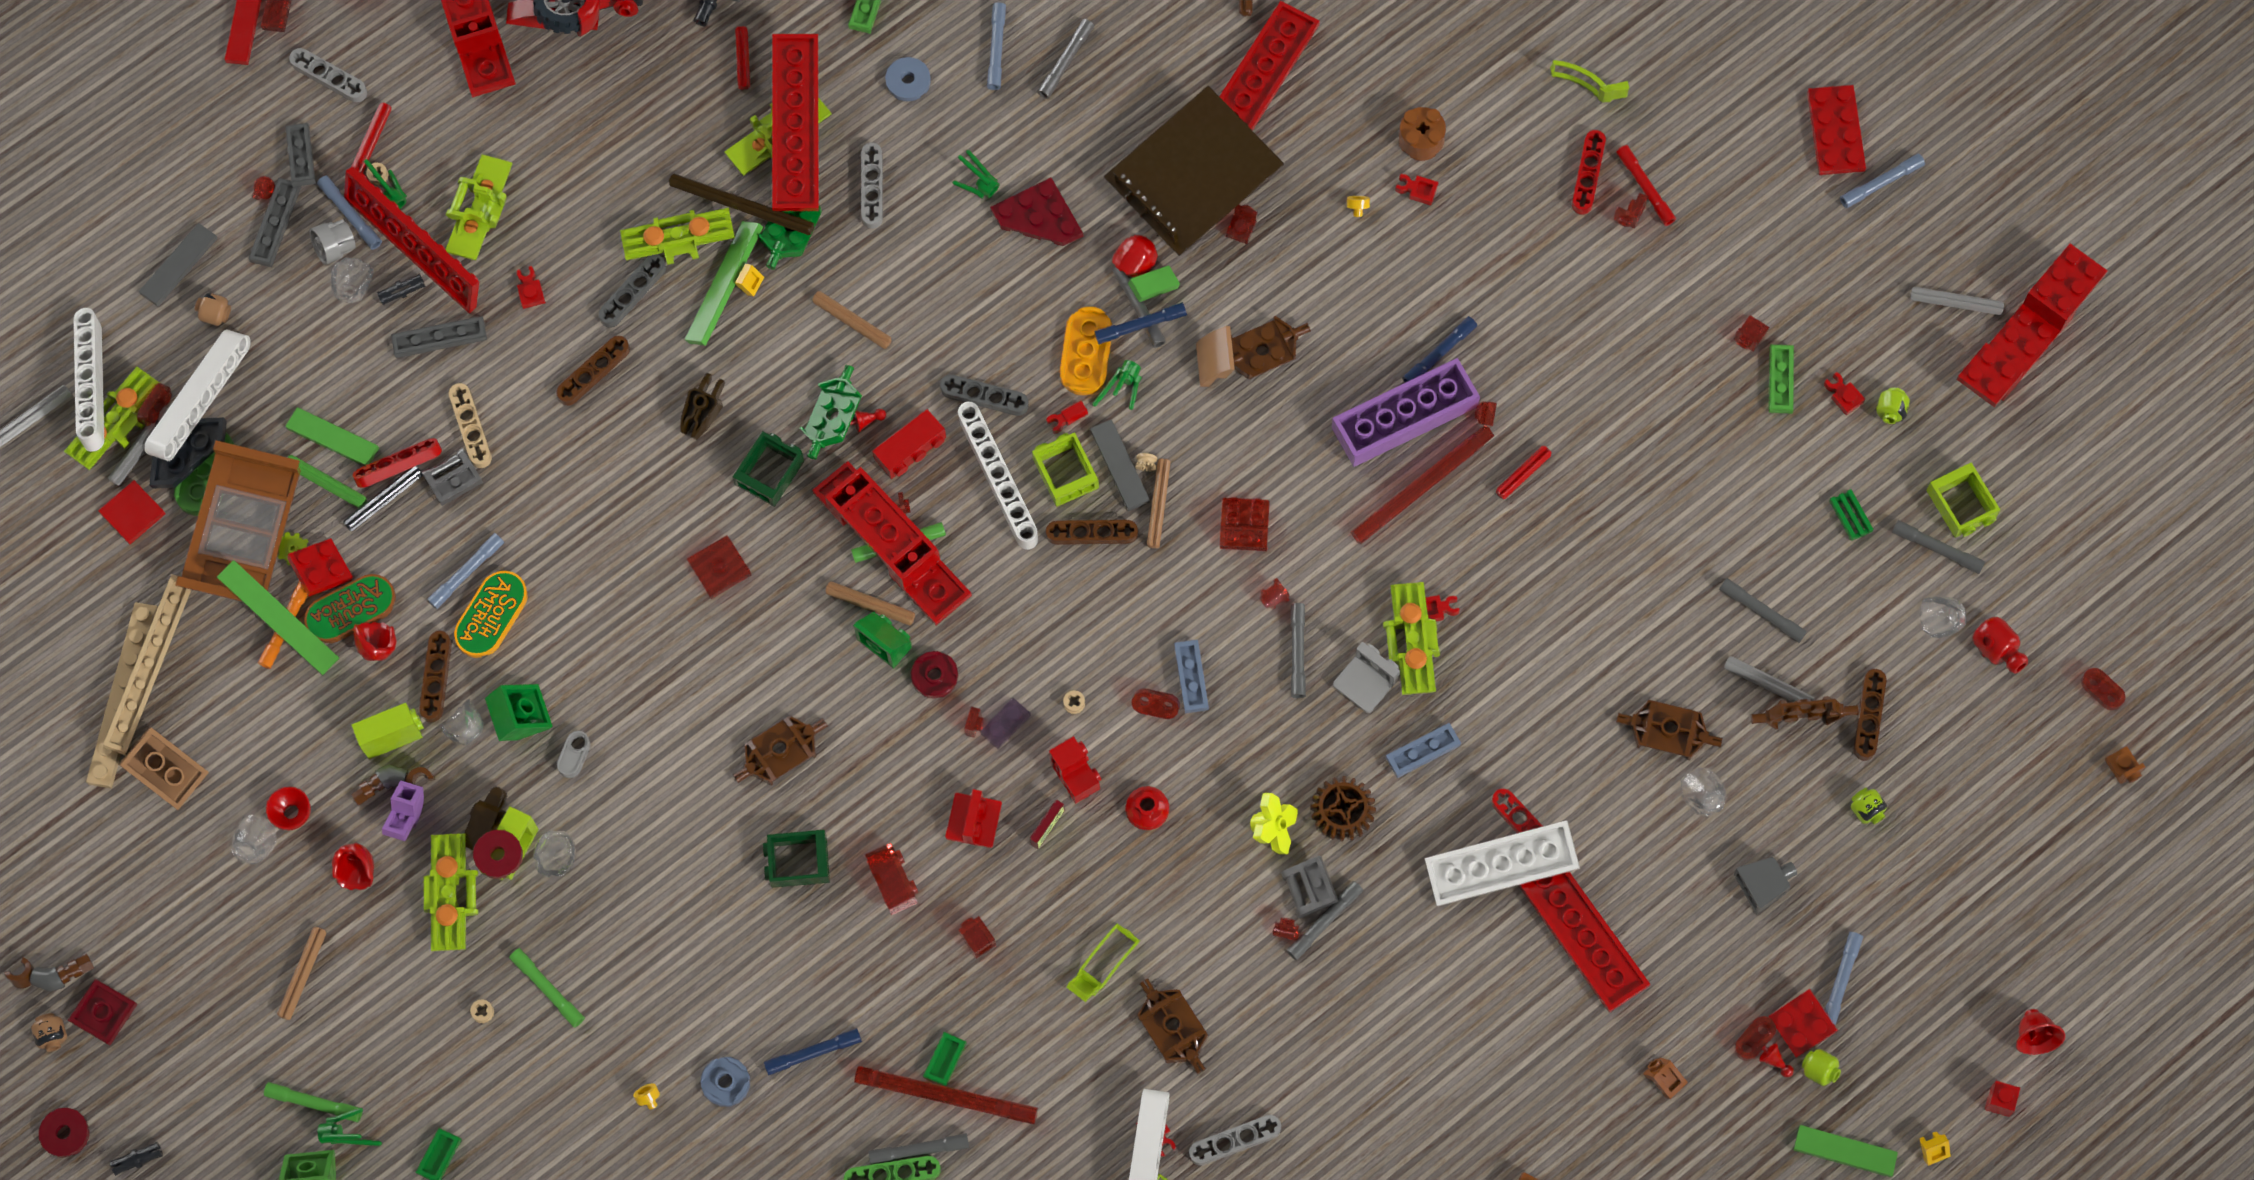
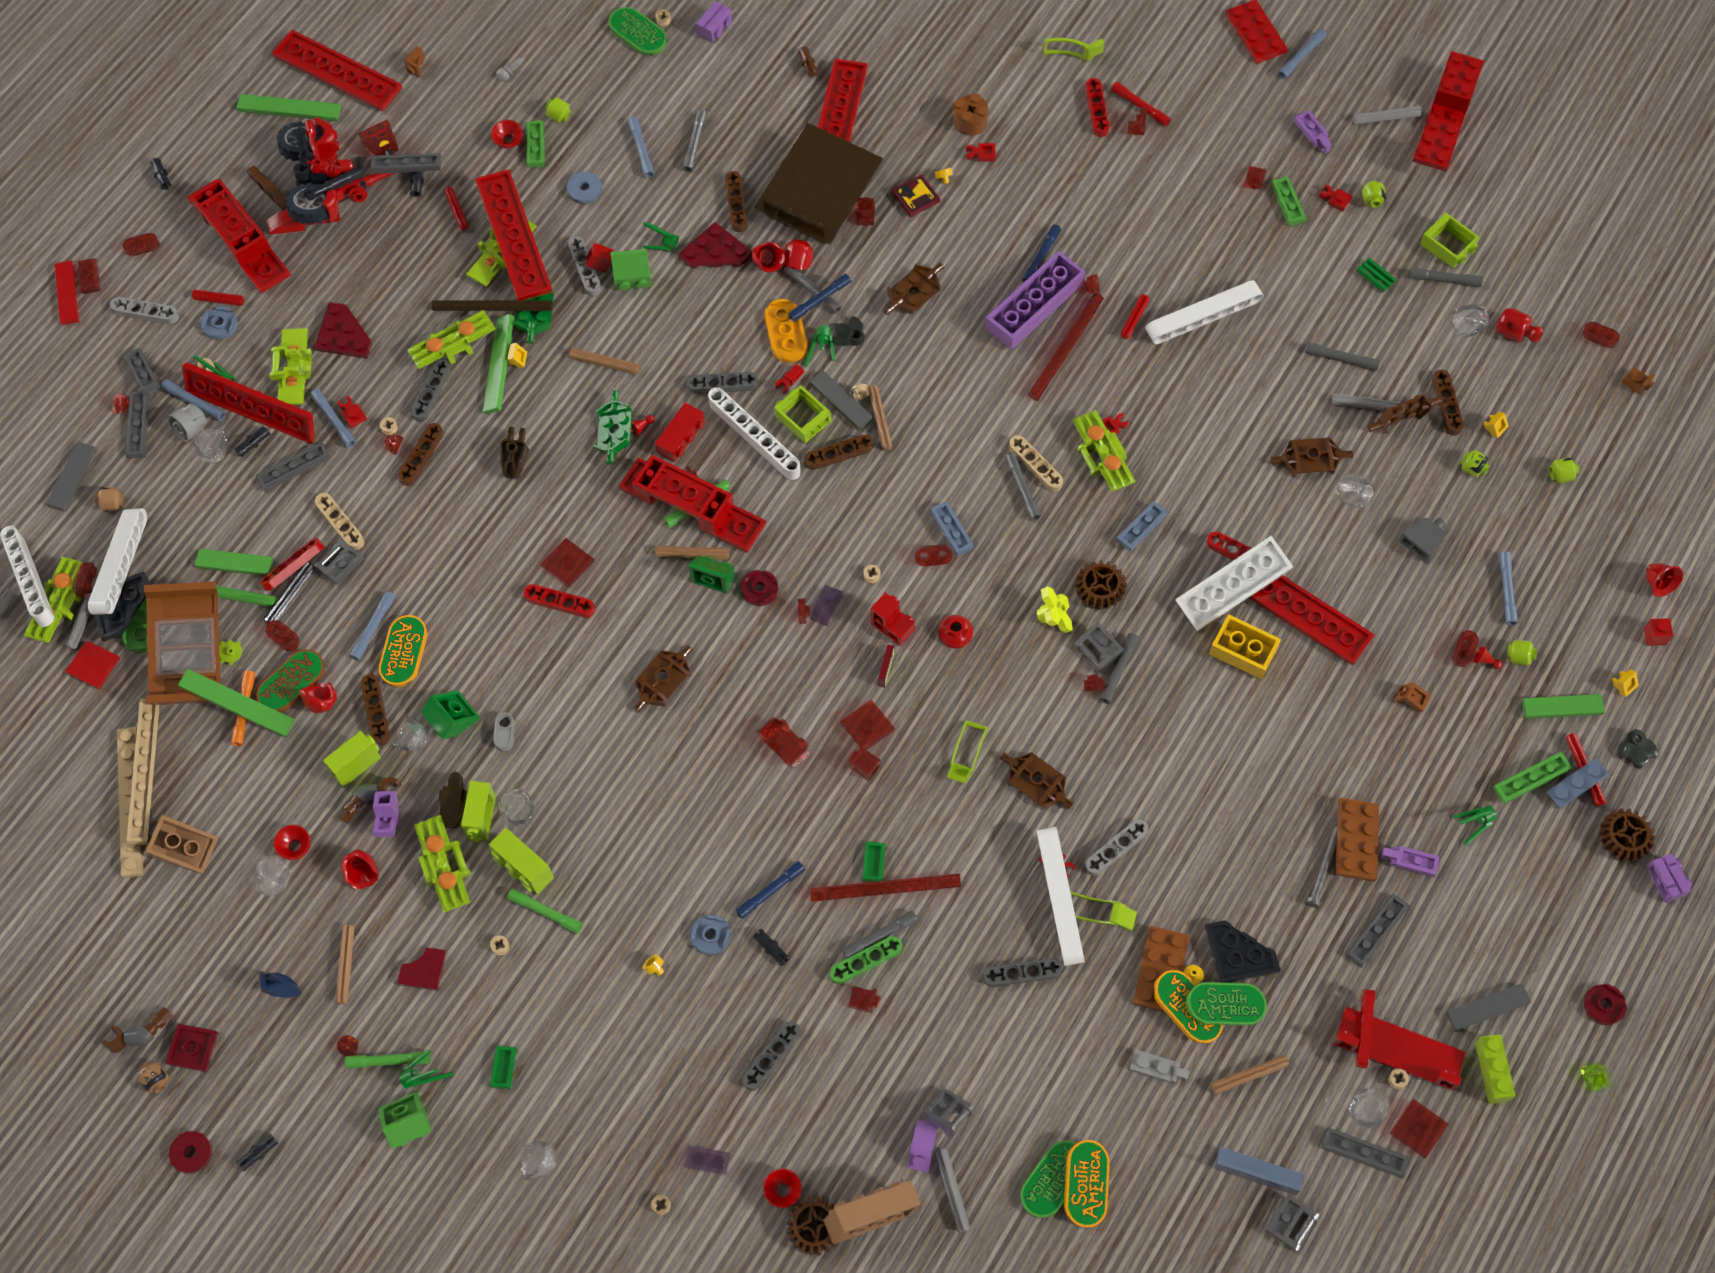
camera: 20 degrees left, 5 degrees down
(219, 973) = (278, 985): none -> dark blue hat
(274, 1070) = (347, 1045): none -> clear red tile
(319, 567) = (256, 657): red plate -> none
(358, 550) = (283, 636): none -> clear red plate
(372, 136) = (193, 340): red axle -> none
(389, 1012) = (425, 971): none -> dark red tile
(417, 130) = (221, 331): none -> sand blue tile
(420, 86) = (218, 297): none -> red axle
(497, 840) = (471, 807): dark red tile -> none
(499, 266) = (343, 433): none -> sand blue piece
(536, 921) = (520, 861): none -> lime piece
(552, 181) = (342, 333): none -> dark red plate
(565, 345) = (393, 443): none -> clear red plate
(572, 325) = (383, 426): none -> tan bush
(694, 610) = (557, 604): none -> red beam
(744, 481) = (579, 497): dark green window -> none
(789, 1120) = (771, 947): none -> black pin
(794, 838) = (698, 737): dark green window -> none
(892, 183) = (599, 257): none -> red brick
(924, 212) = (631, 269): none -> bright green slope
(973, 819) = (829, 680): red bracket -> none
(998, 890) = (867, 725): none -> clear red plate
(1087, 157) = (736, 201): none -> reddish brown beam
(1097, 248) = (768, 256): none -> red hair
(1154, 283) = (818, 269): bright green tile -> none
(1160, 377) = (846, 332): none -> pearl dark grey plate
(1215, 356) = (883, 303): medium nougat slope -> none
(1244, 524) = (949, 412): clear red bracket -> none
(1274, 595) = (990, 453): clear red brick -> none
(1313, 221) = (916, 195): none -> tile
(1329, 624) = (1037, 462): none -> tan beam
(1367, 678) = (1081, 488): light grey bracket -> none
(1484, 946) = (1244, 646): none -> yellow brick
(1612, 495) = (1204, 312): none -> white beam
(1803, 1023) = (1495, 626): red plate -> none
(1852, 292) = (1313, 131): none -> medium lavender hinge
(1918, 765) = (1497, 424): none -> yellow tile
(1976, 852) = (1563, 470): none -> lime head

